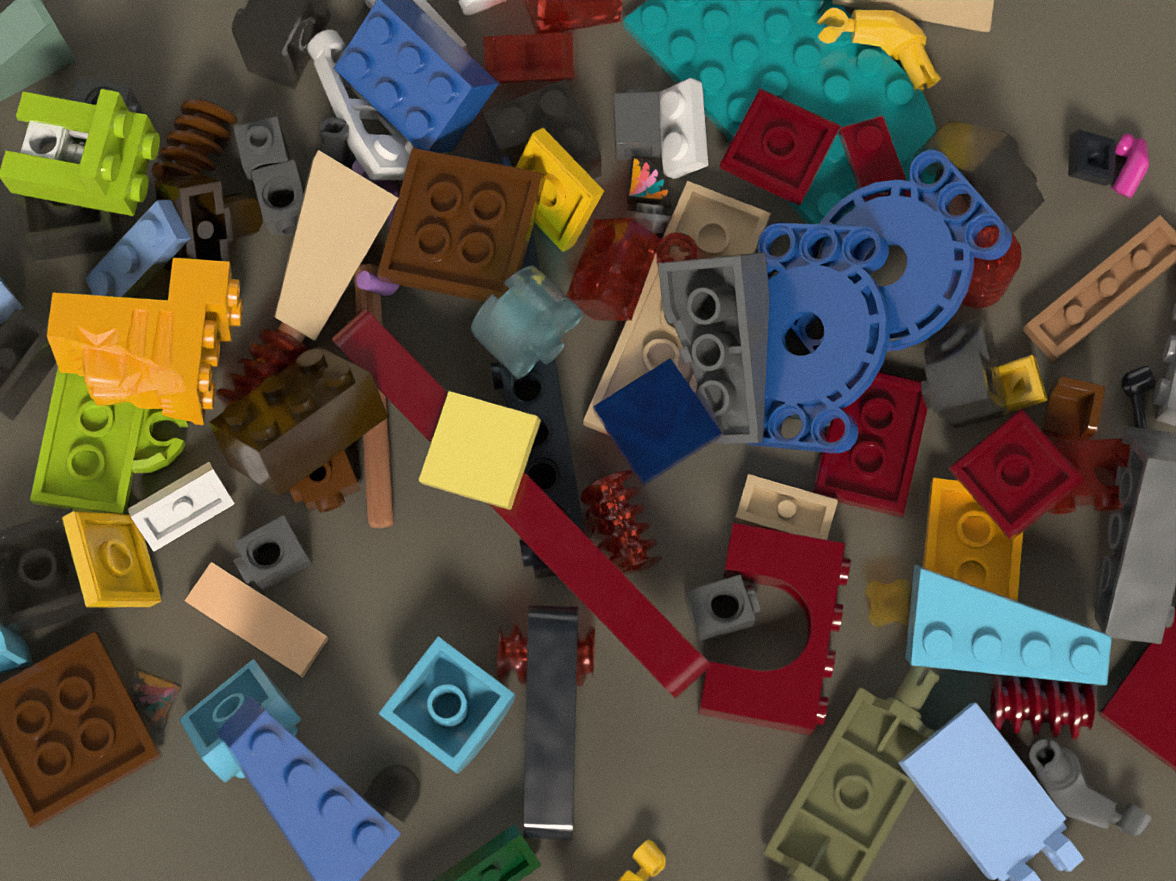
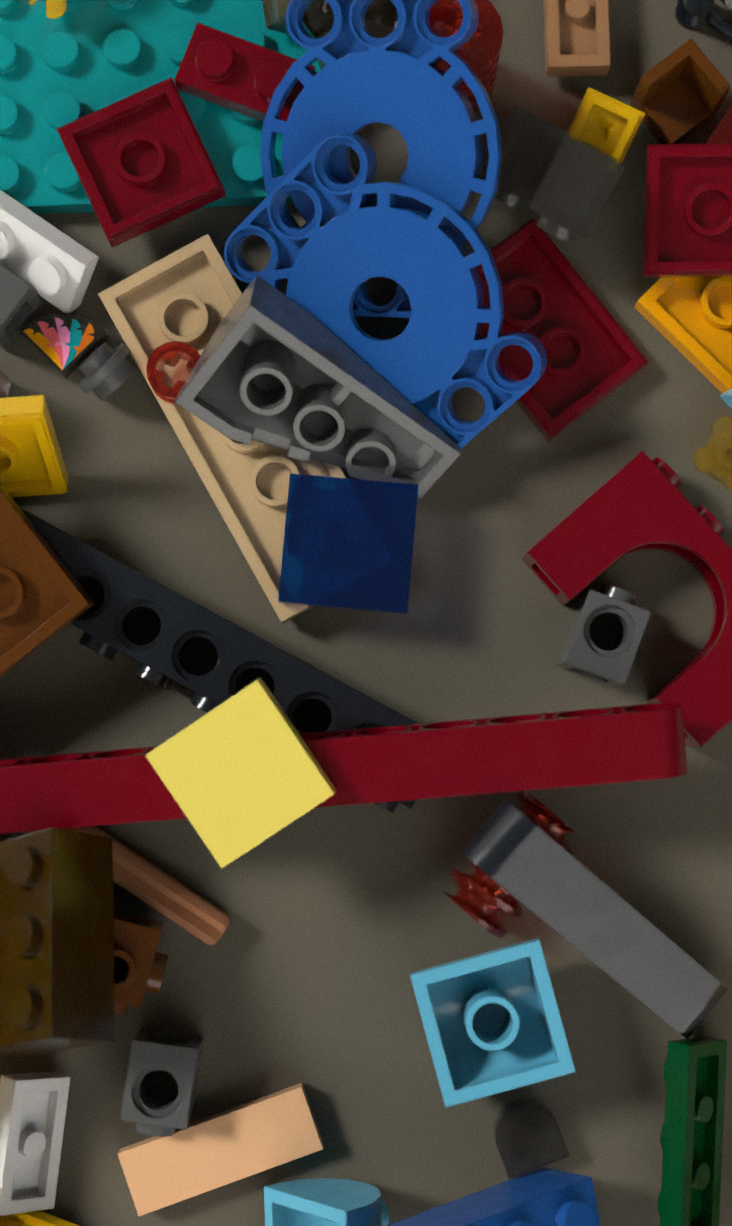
camera: 55 degrees left, 10 degrees up
(526, 321) = (130, 604): clear light blue brick -> none
(613, 269) = (135, 455): clear red brick -> none
(617, 522) = (427, 672): clear red piece -> none
(785, 508) = (549, 482): tan plate -> none

